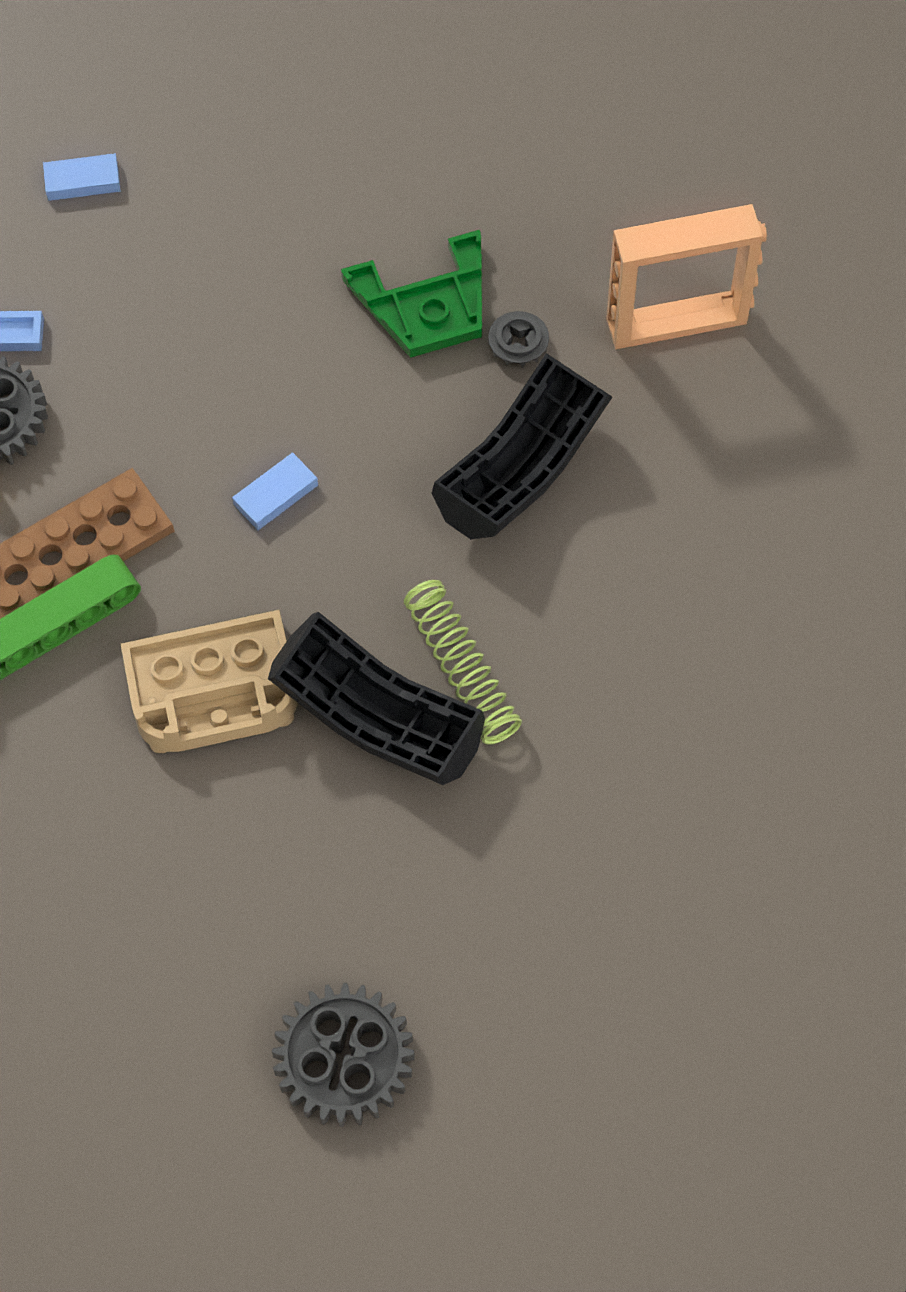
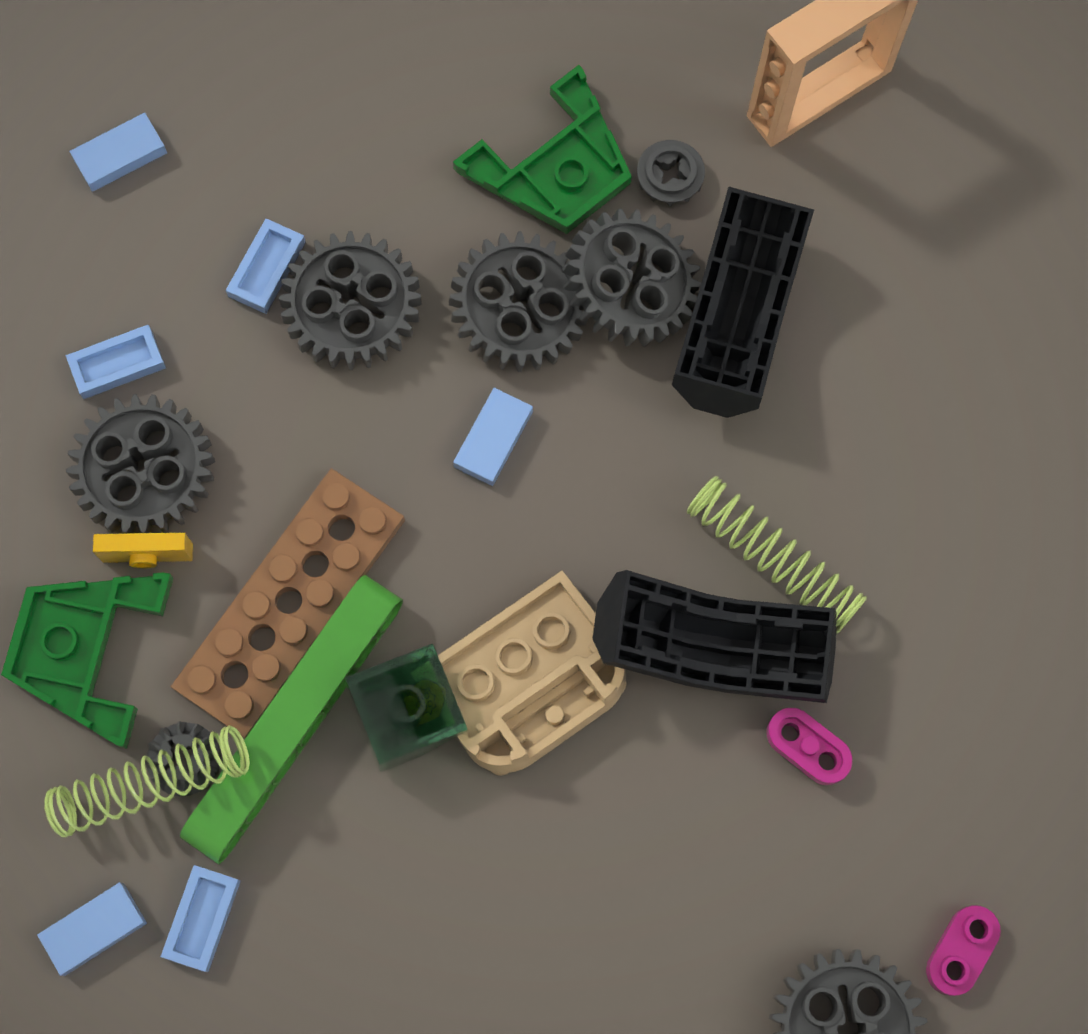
camera: 25 degrees left, 10 degrees up
(98, 664) = (405, 707): none -> clear green slope
(155, 300) = (265, 266): none -> light blue tile
(234, 328) = (329, 331): none -> dark grey gear
(308, 396) = (485, 317): none -> dark grey gear
(417, 381) = (667, 292): none -> dark grey gear
(420, 823) = (810, 743): none -> dark pink plate
(474, 1033) = (964, 949): none -> dark pink plate

